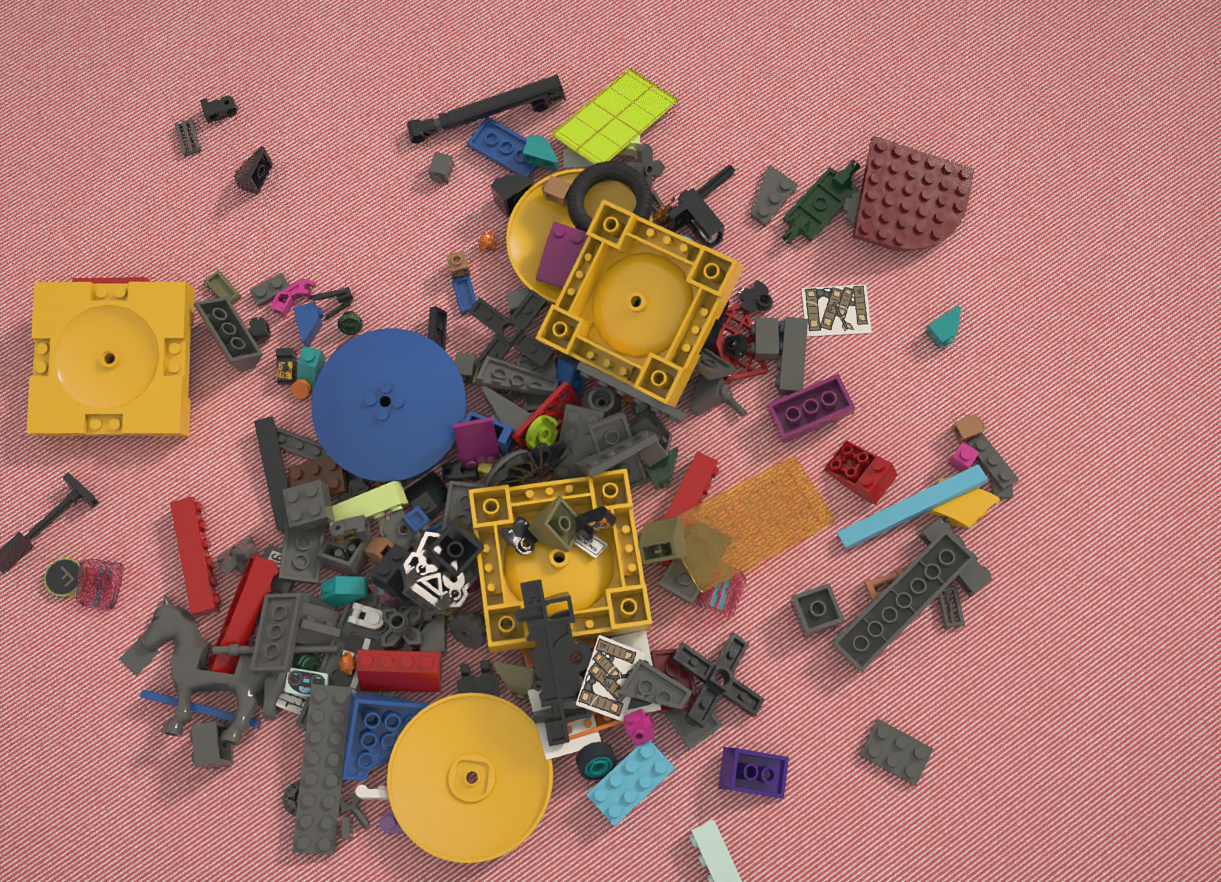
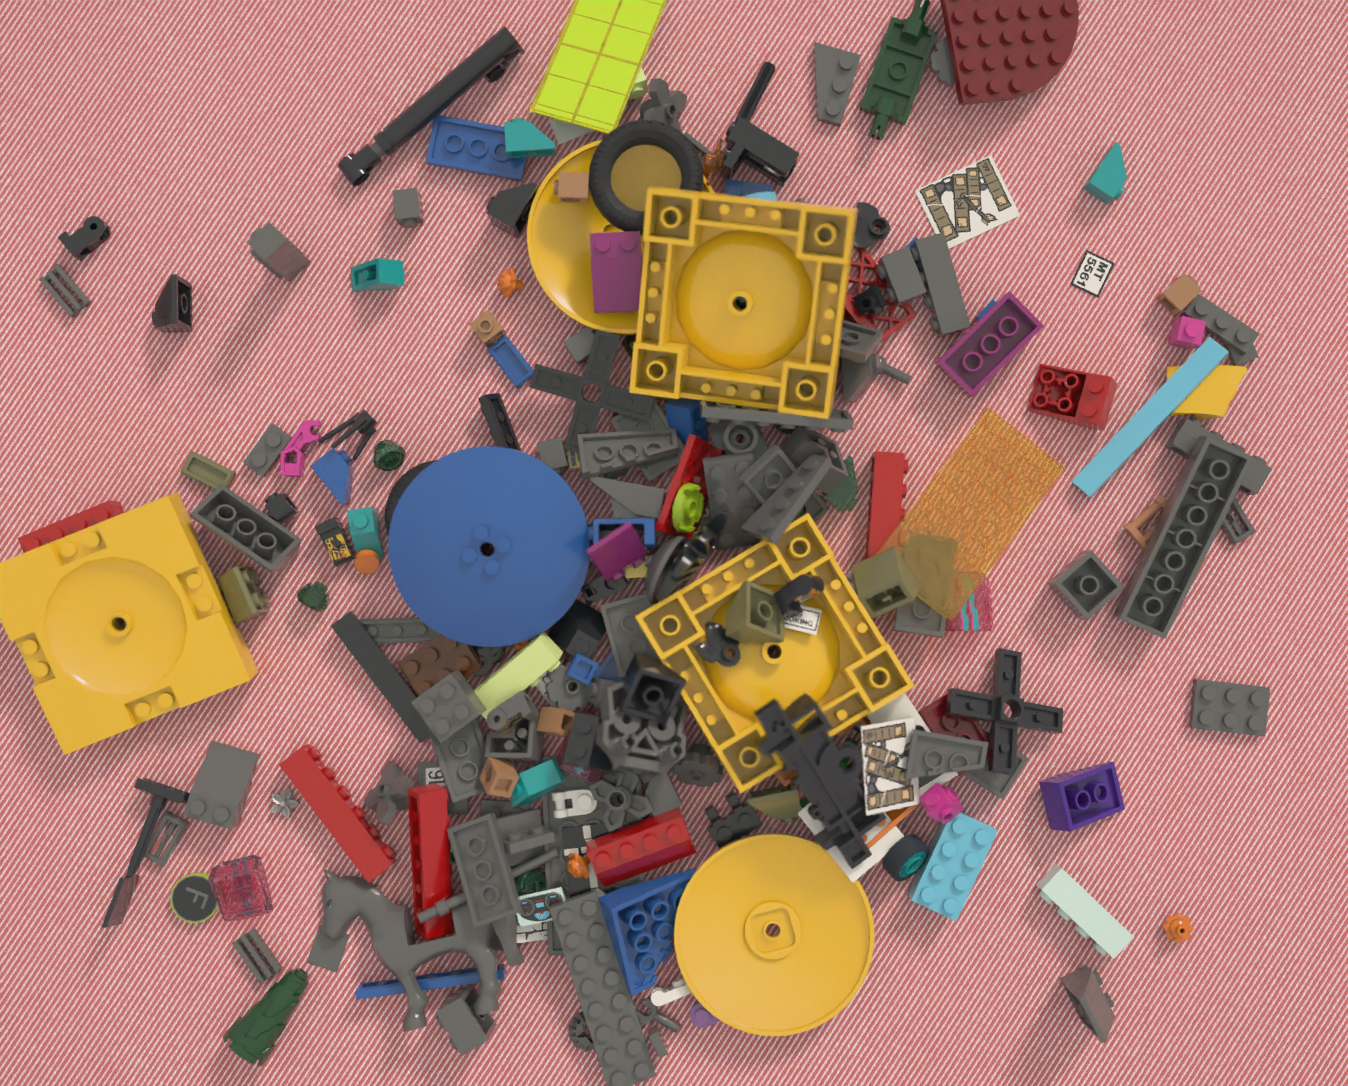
camera: 25 degrees left, 15 degrees up
(52, 537) = (176, 820): none -> dark grey tile
(68, 685) = (264, 1022): none -> dark green cone
(78, 638) = (249, 960): none -> dark grey tile
(123, 504) = (222, 785): none -> dark grey slope
(160, 535) = (284, 803): none -> light grey plant
(205, 376) = (244, 594): none -> olive slope
(253, 397) = (314, 596): none -> clear green cone
(320, 572) = (499, 777): none -> medium nougat brick
(337, 158) = (276, 252): none -> dark grey brick
(400, 203) = (377, 275): none -> teal slope
(909, 392) = (1092, 273): none -> sticker

